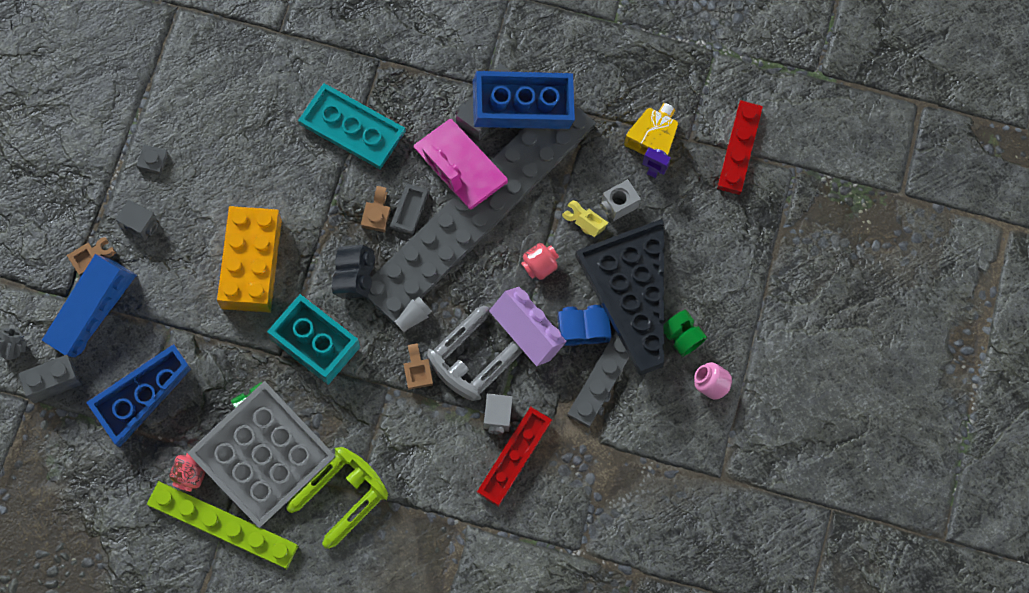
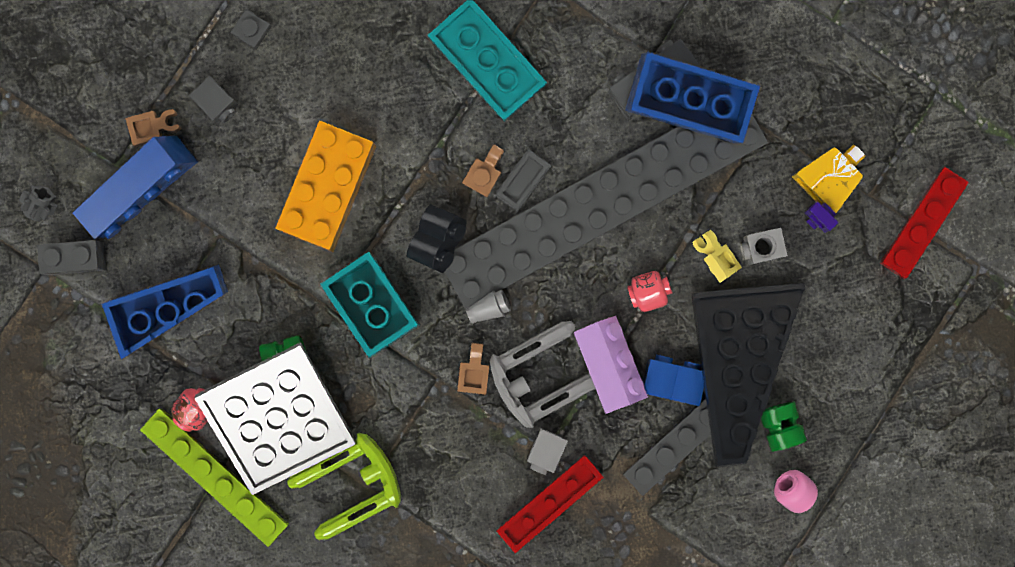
camera: 25 degrees right, 15 degrees up
(460, 164) = (596, 147): dark pink bracket -> none

